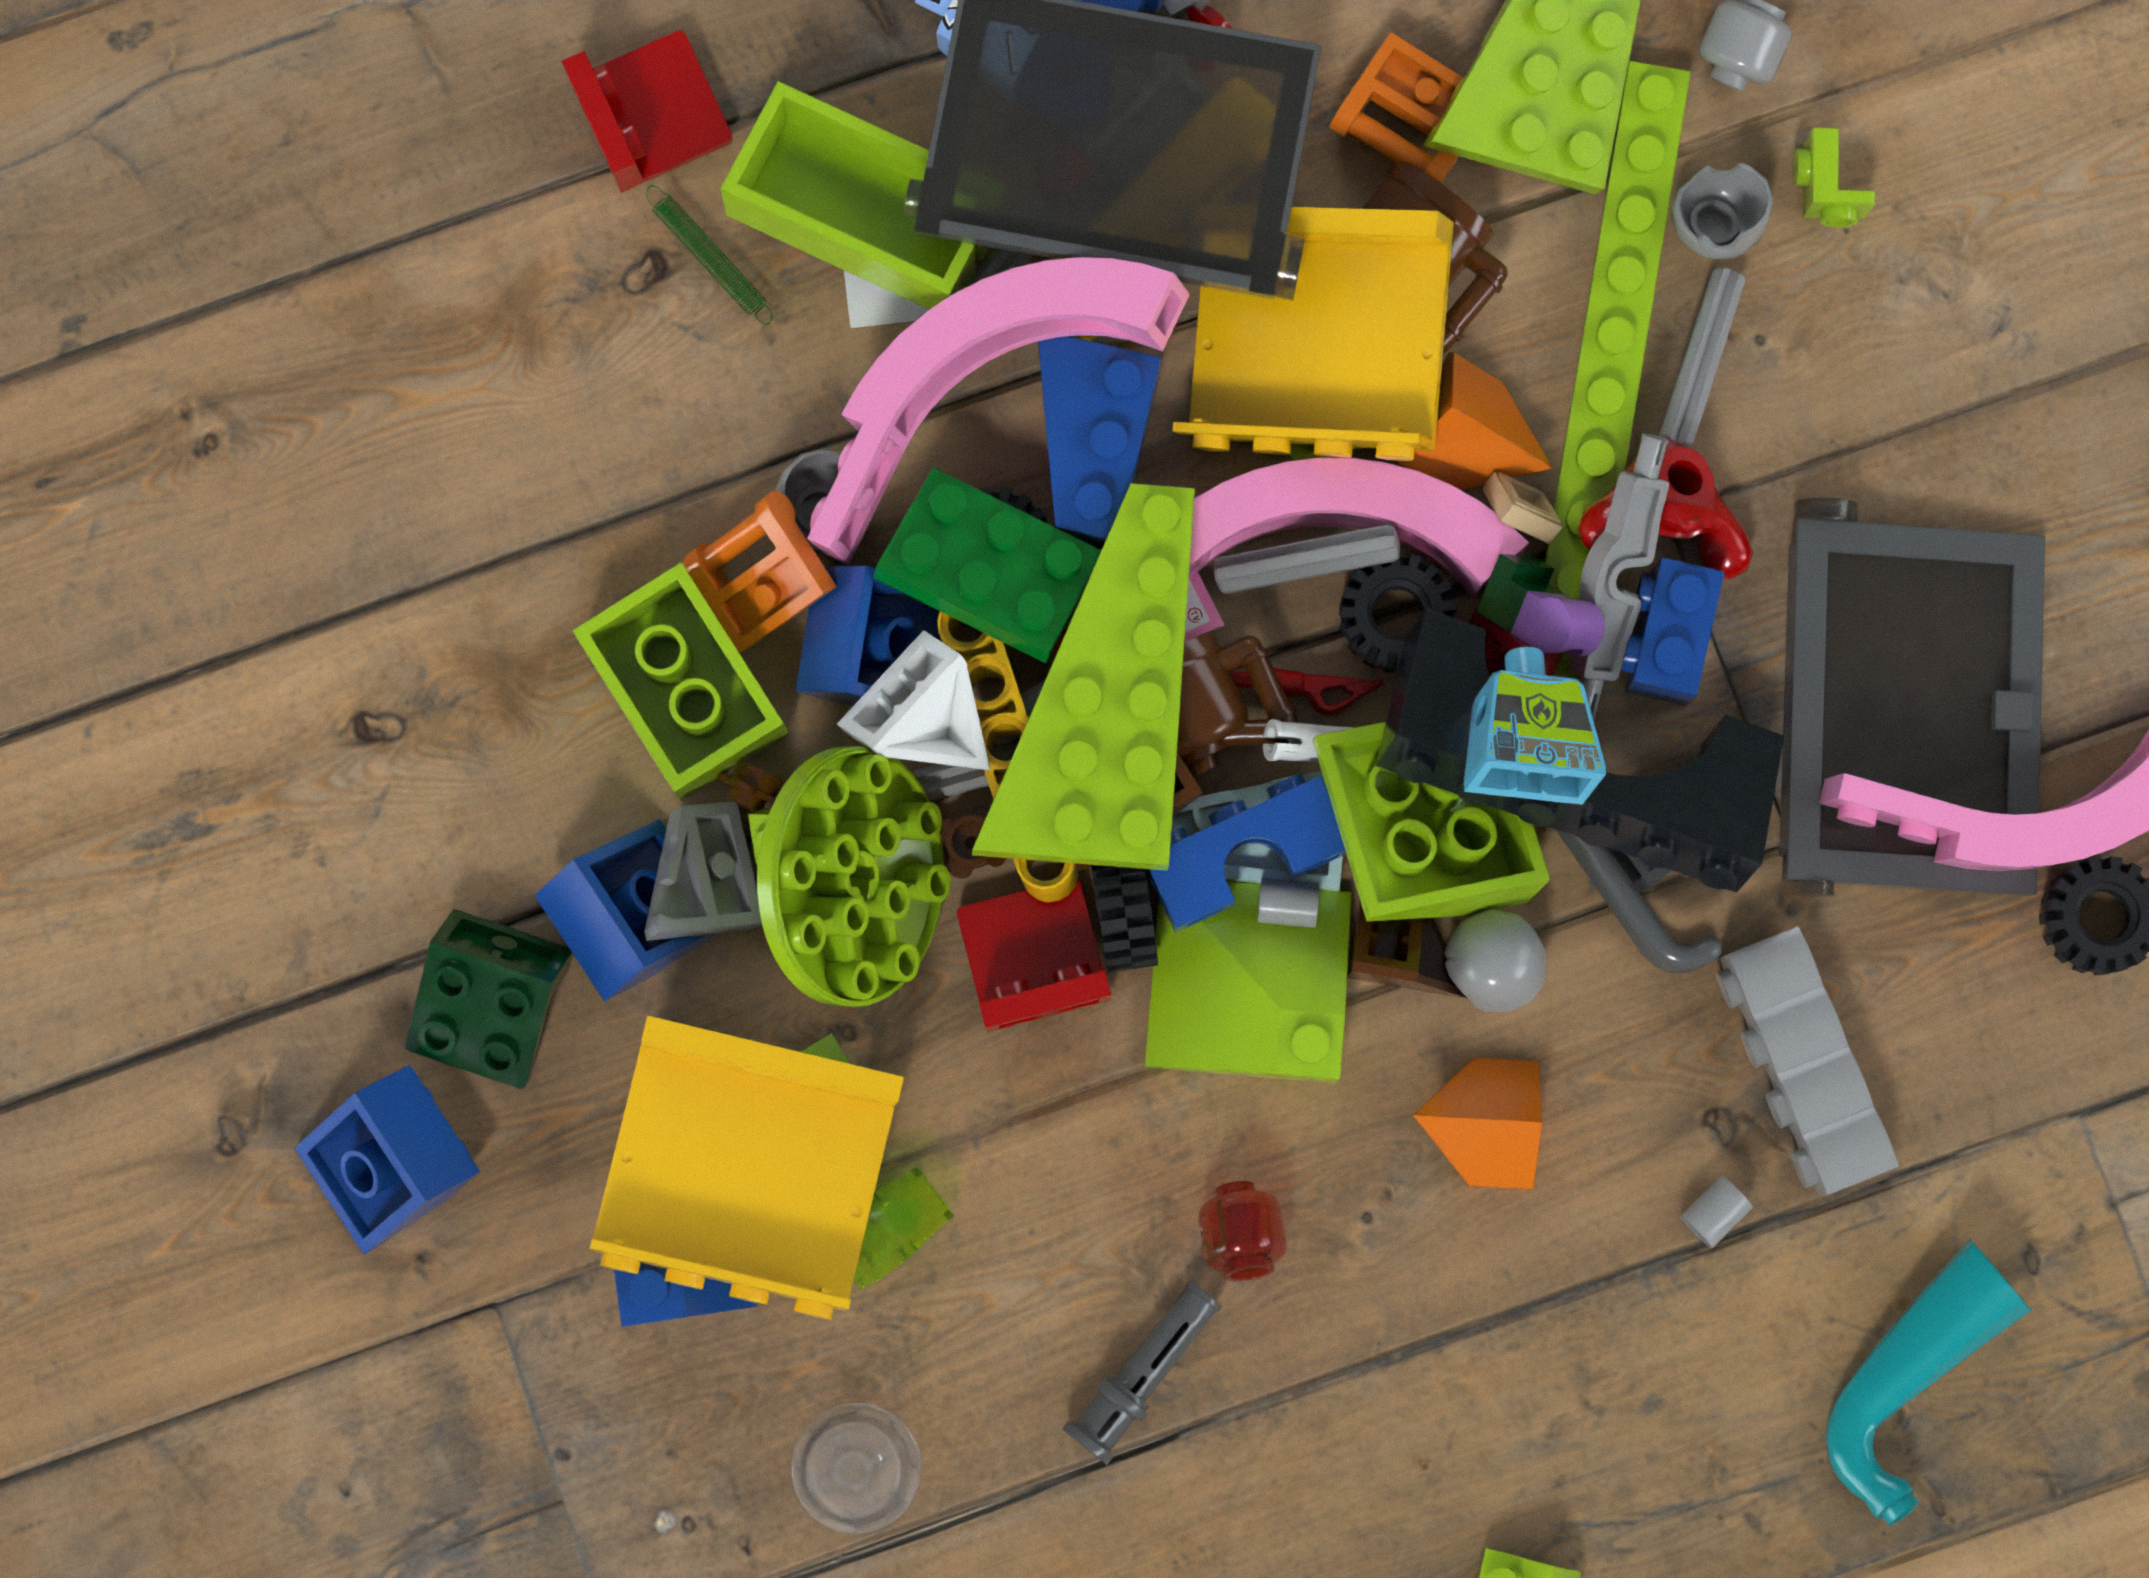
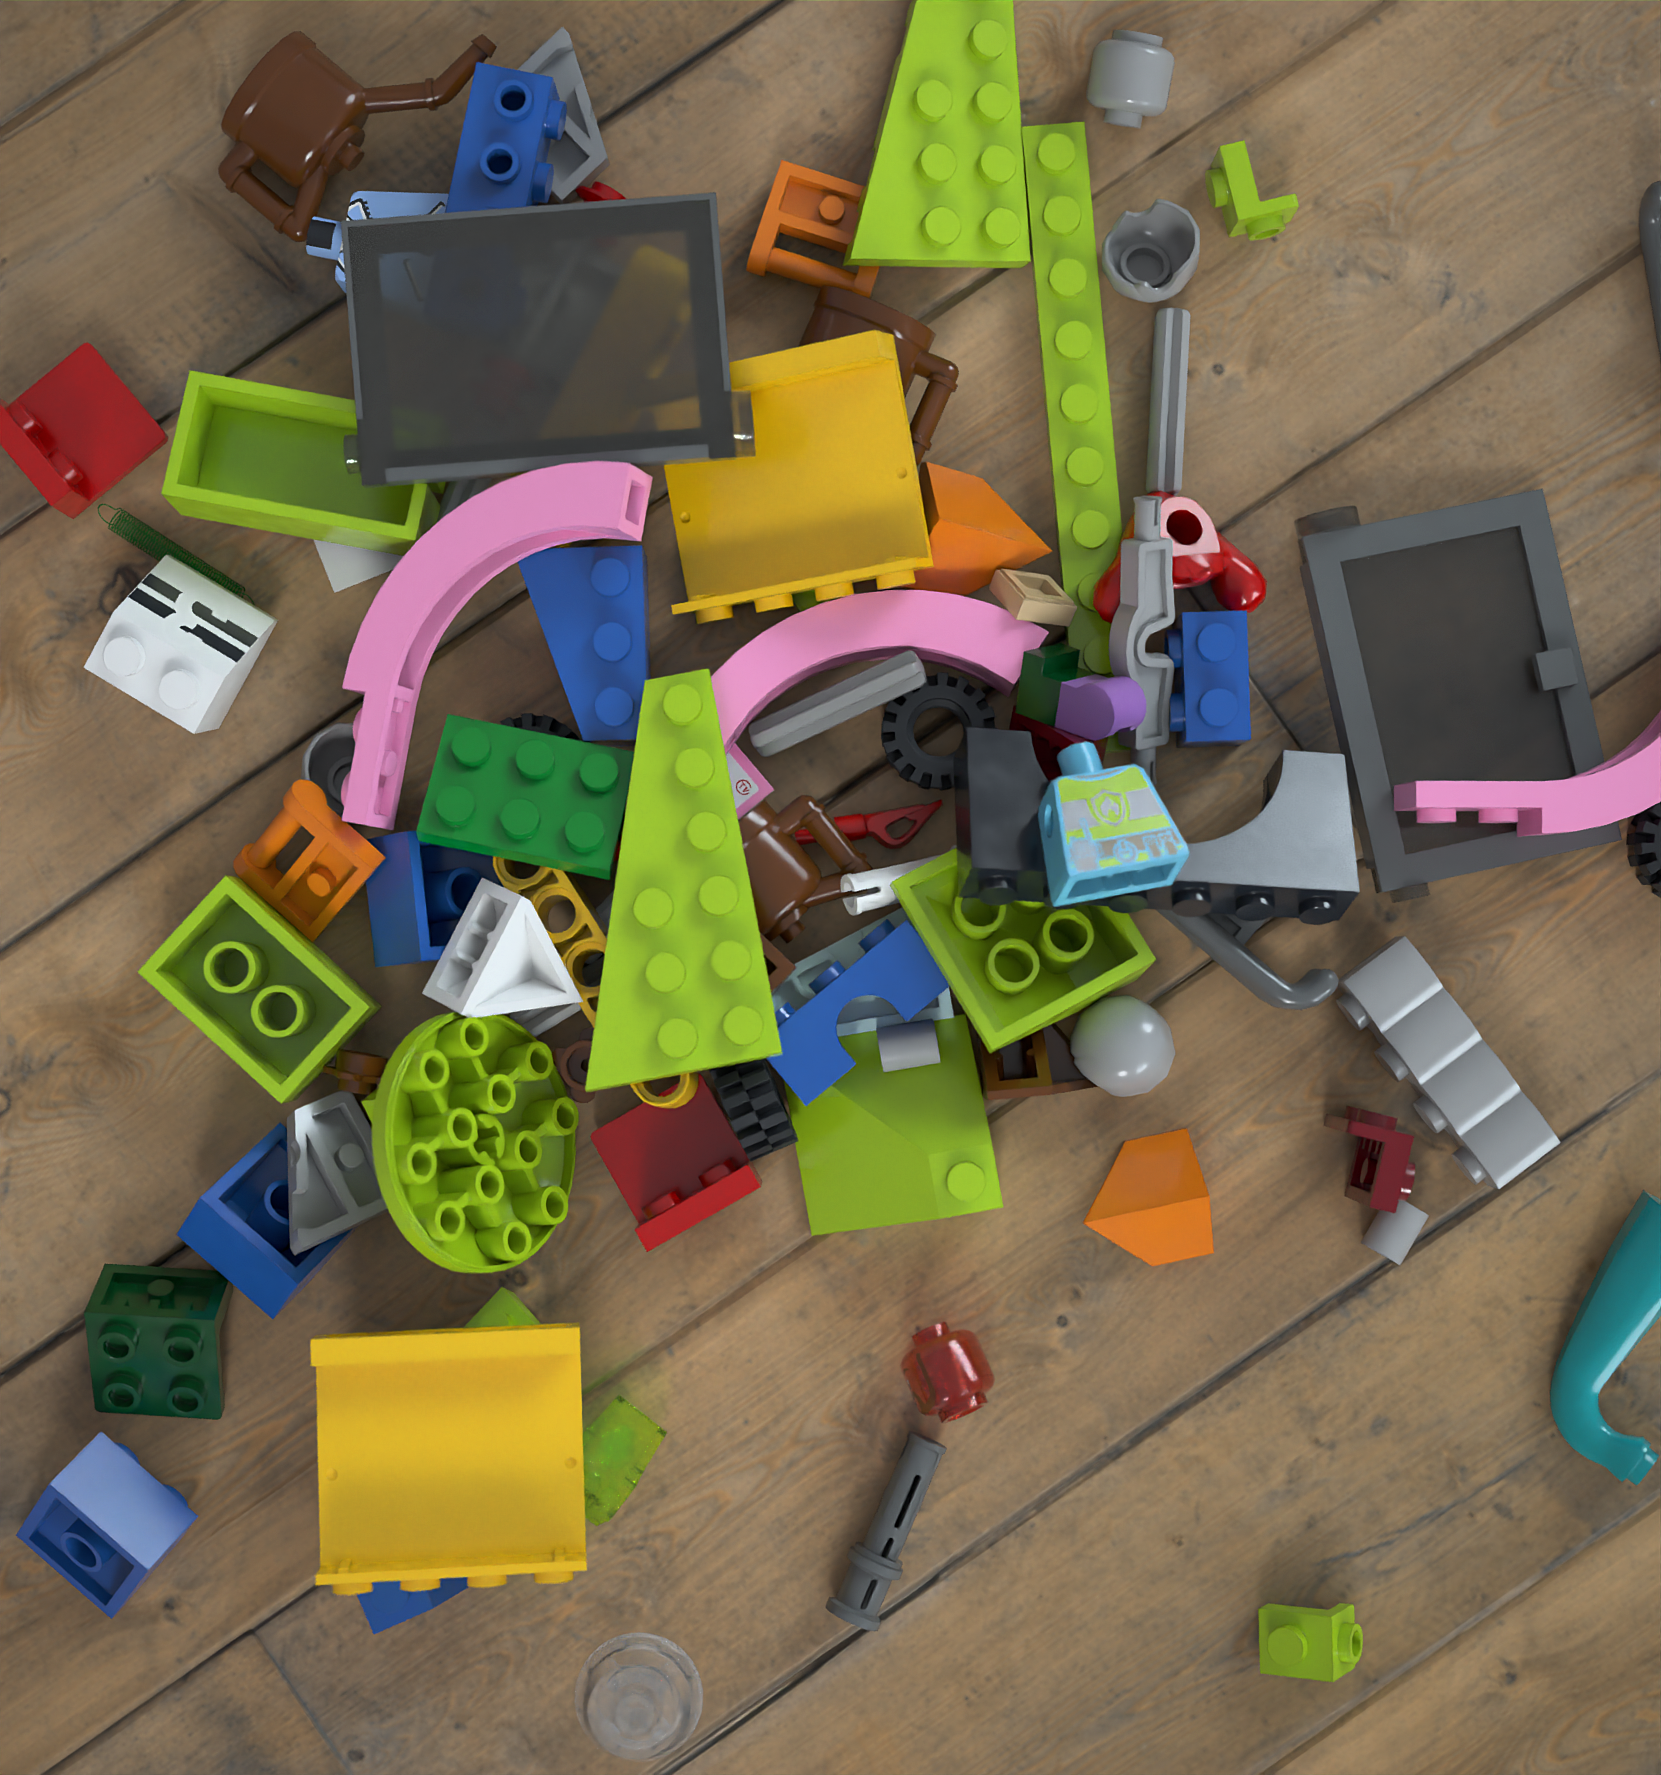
camera: 20 degrees left, 5 degrees up
(695, 337) = (181, 645): none -> white slope
(1718, 1140) = (1380, 1162): none -> dark red bracket

